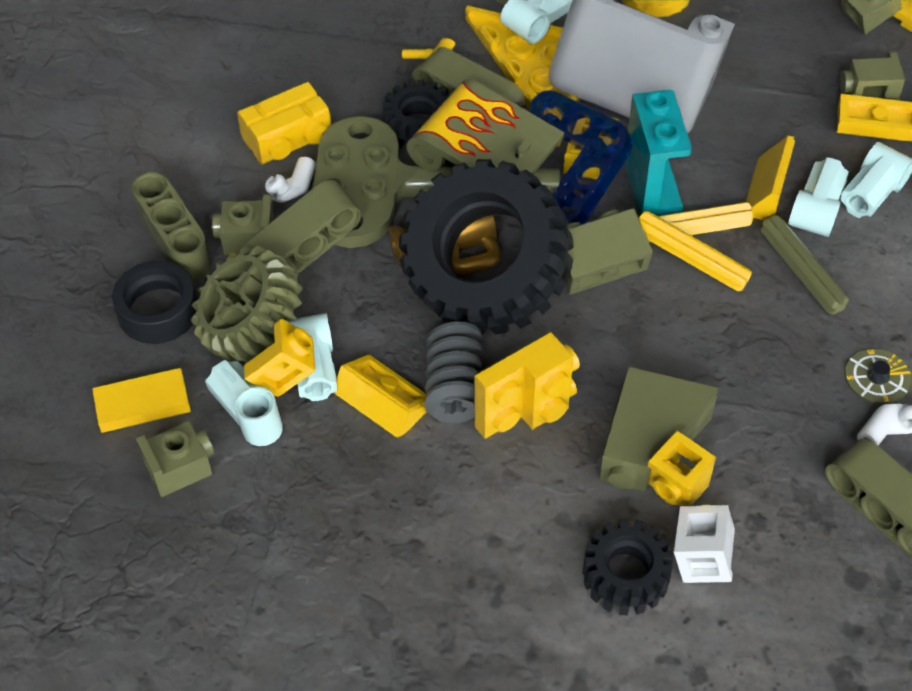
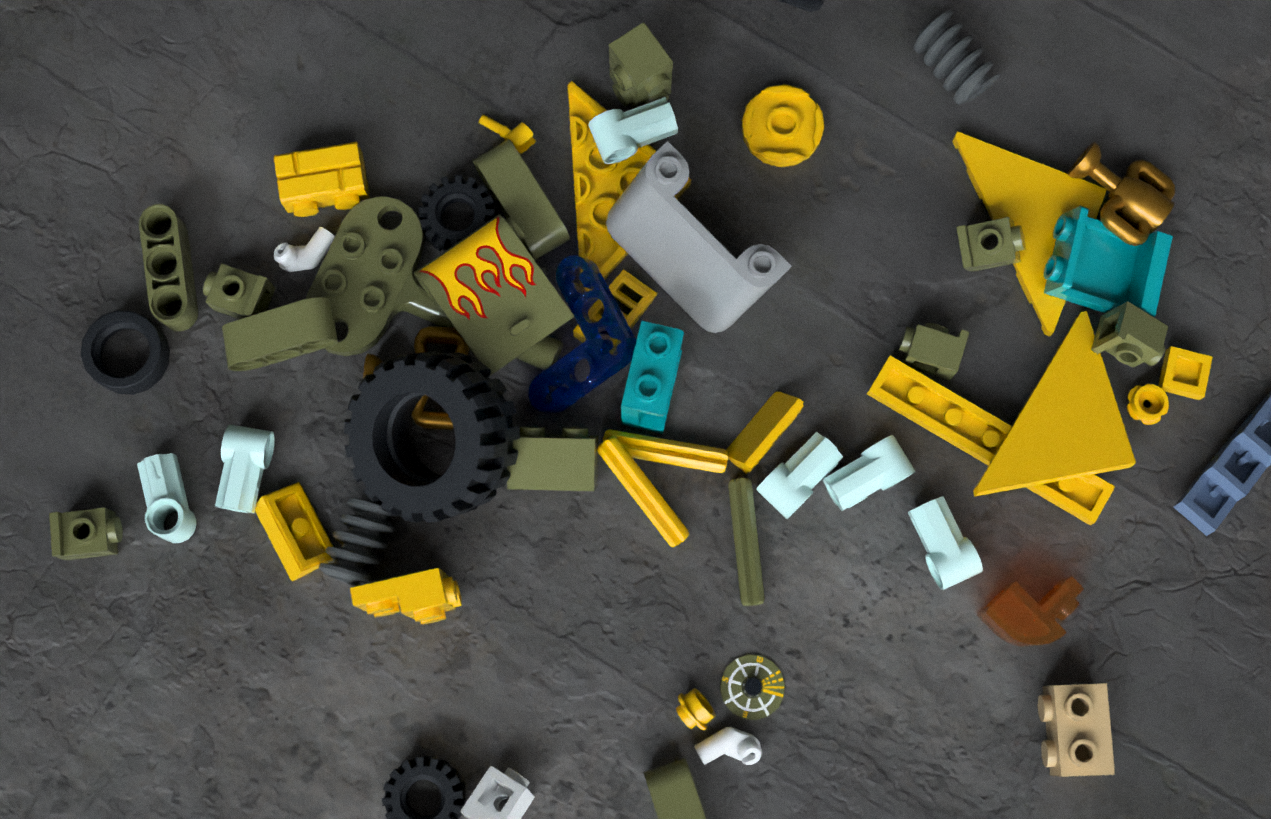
camera: 20 degrees right, 25 degrees up
(141, 400) = (80, 454): yellow tile -> none
(245, 302) = (196, 402): olive gear -> none
(284, 361) = (208, 481): yellow bracket -> none
(646, 418) = (507, 670): olive slope -> none
(675, 480) = (504, 733): yellow brick -> none
(841, 402) = (695, 709): none -> yellow plate

